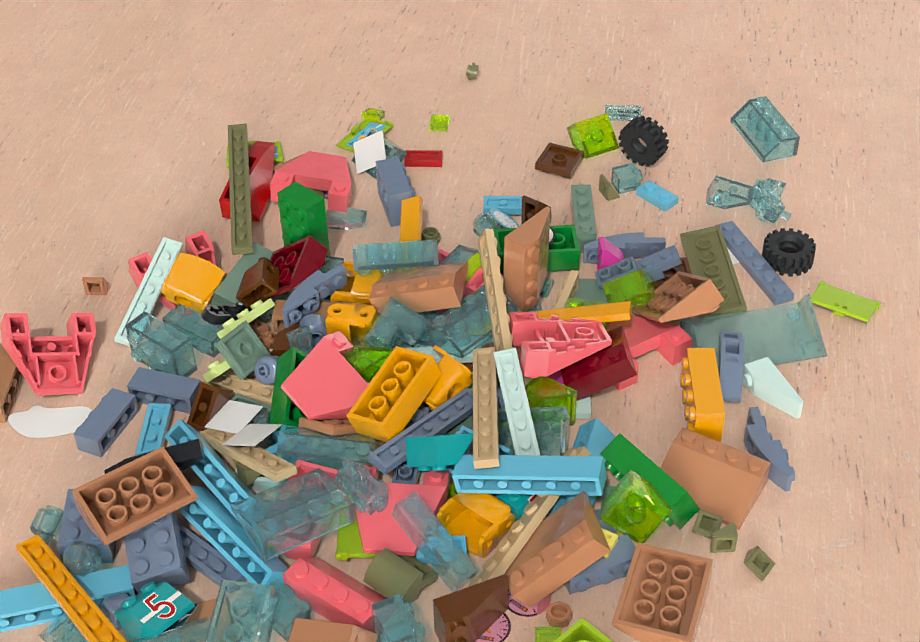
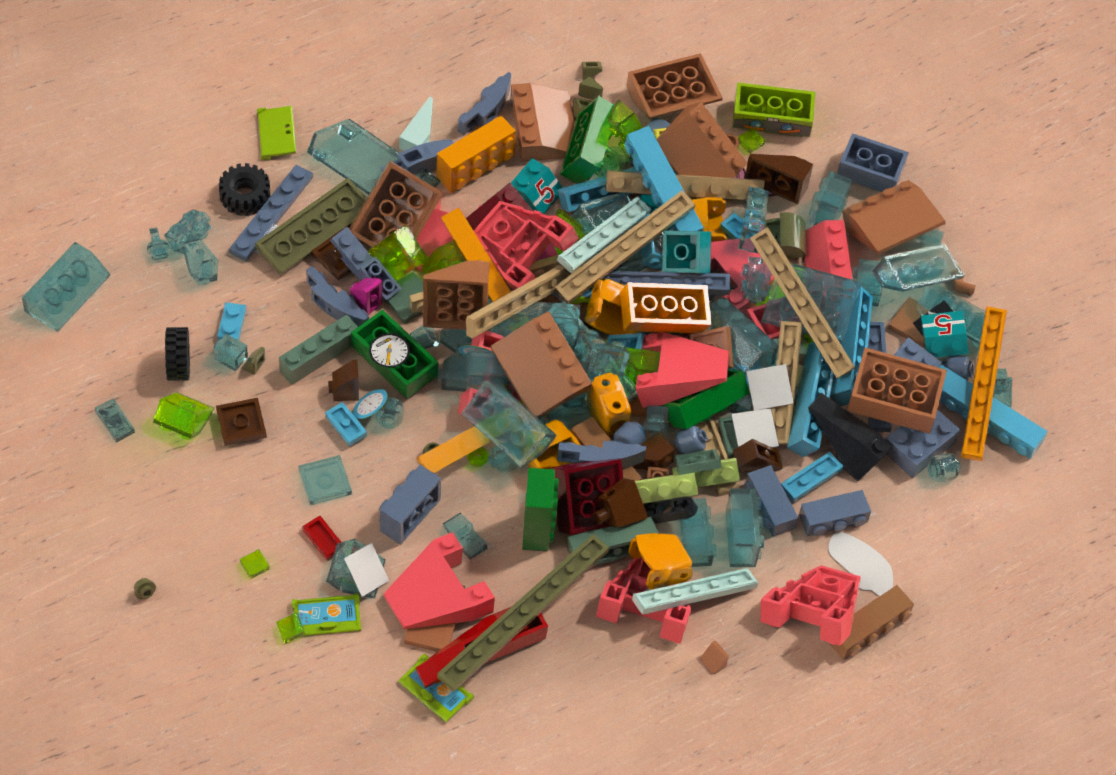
camera: 135 degrees left, 15 degrees up
(82, 558) = (954, 405): clear light blue head -> none
(295, 482) = (802, 303): none -> tan plate
(468, 178) = (325, 480): none -> clear light blue tile
(636, 422) = (537, 186): none -> teal slope

